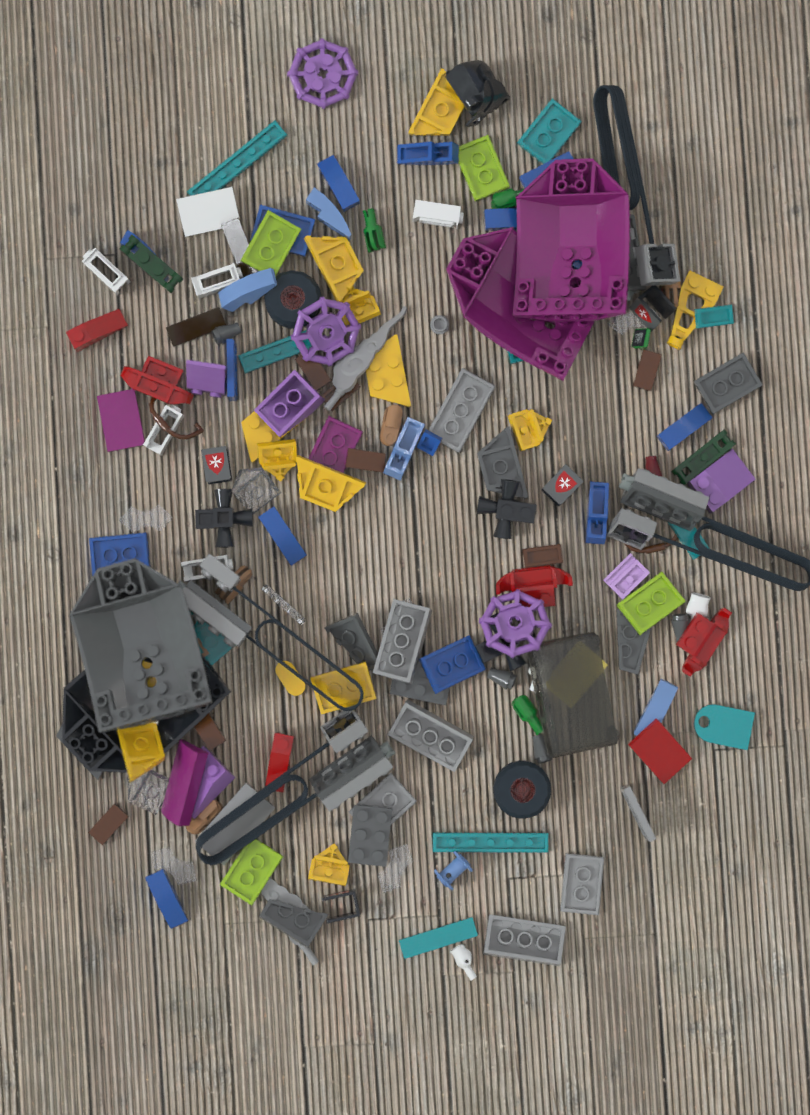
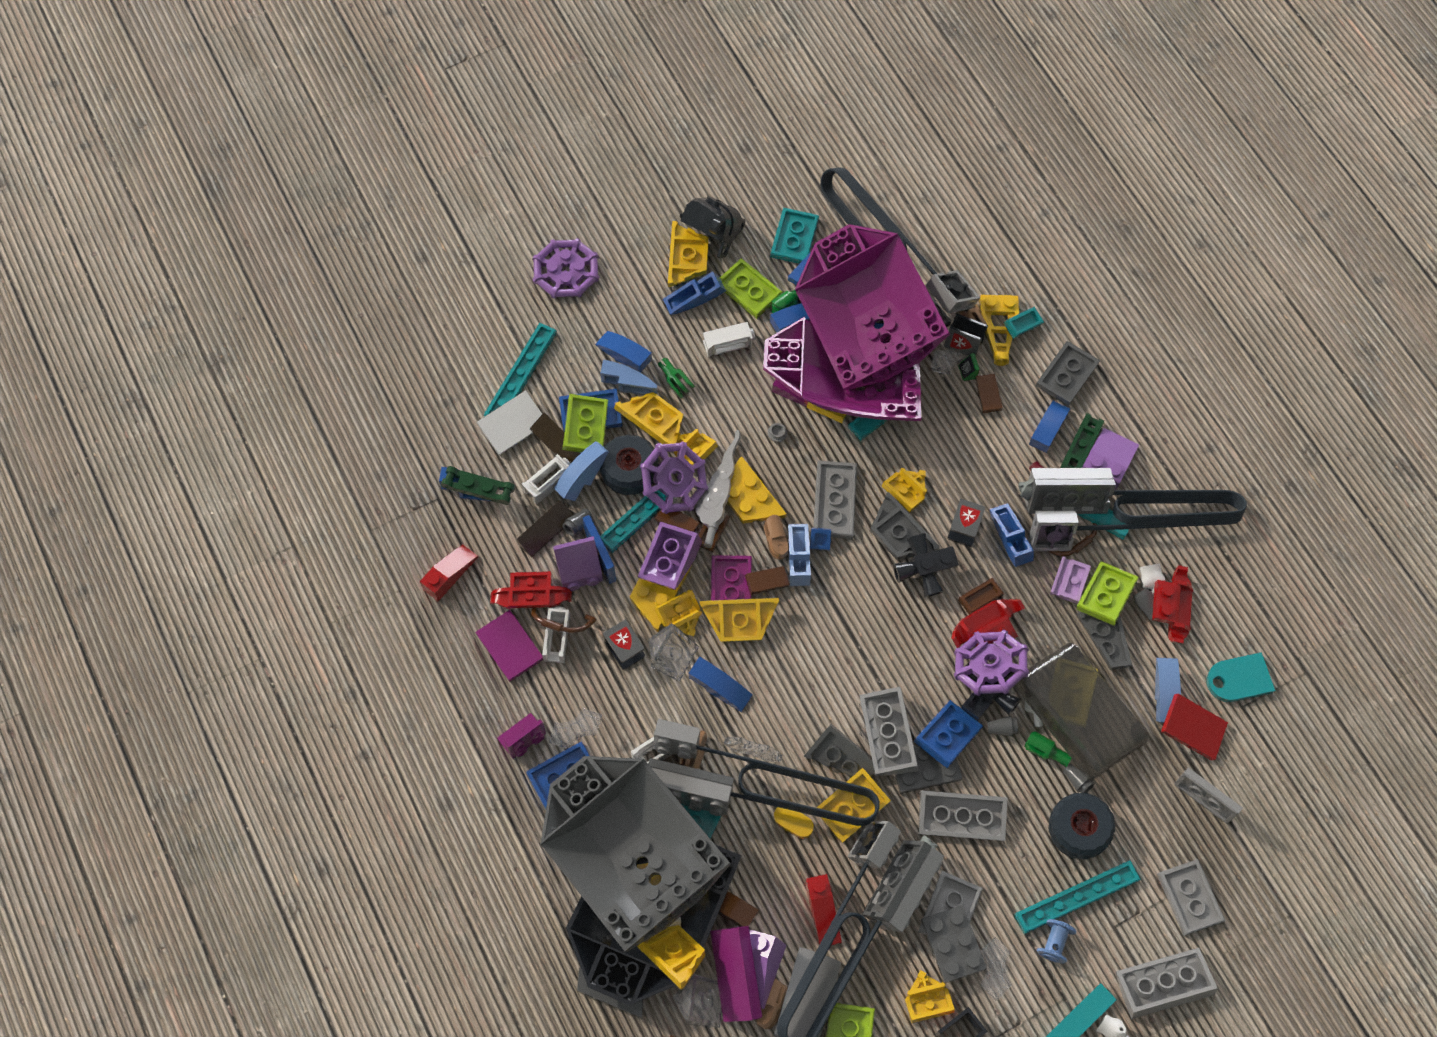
camera: 20 degrees left, 20 degrees down
(90, 255) = (431, 520): white window -> none
(98, 505) = (522, 735): none -> magenta bracket
(223, 518) = (653, 692): black brick -> none

